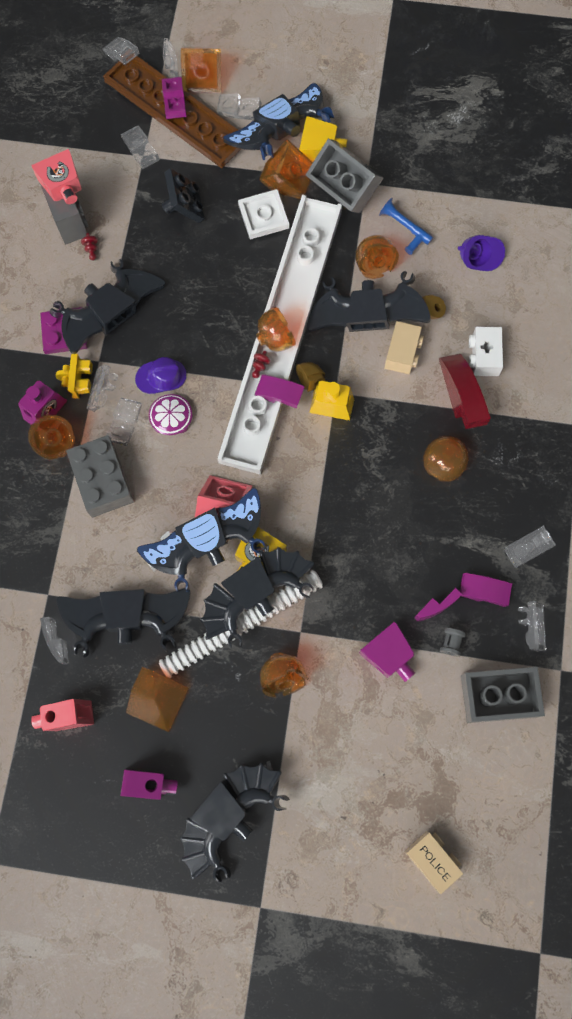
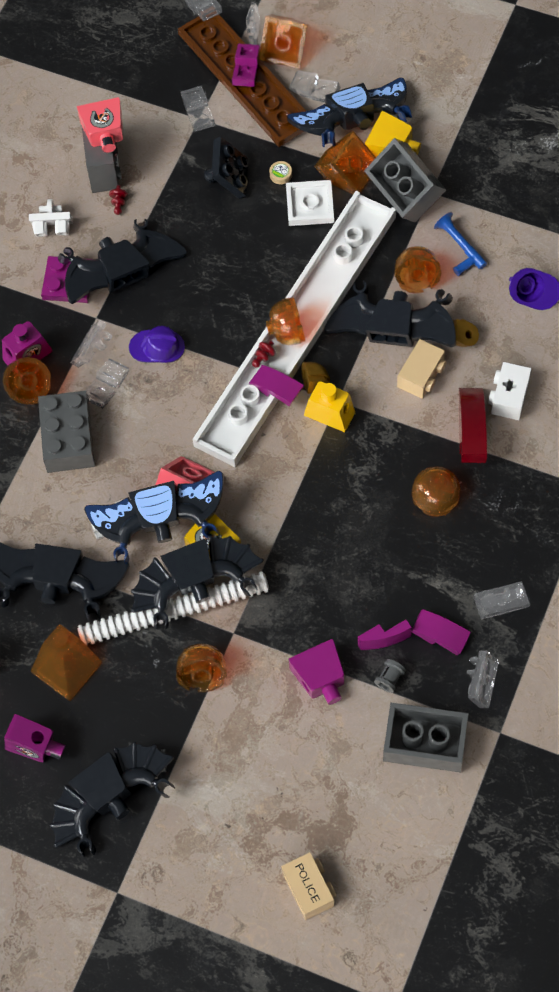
camera: 15 degrees right, 10 degrees down
(25, 280) = (47, 217): none -> white hips
(72, 377) = (63, 327): yellow hips -> none
(170, 414) = (156, 386): dish -> none
(229, 191) = (280, 172): none -> tile

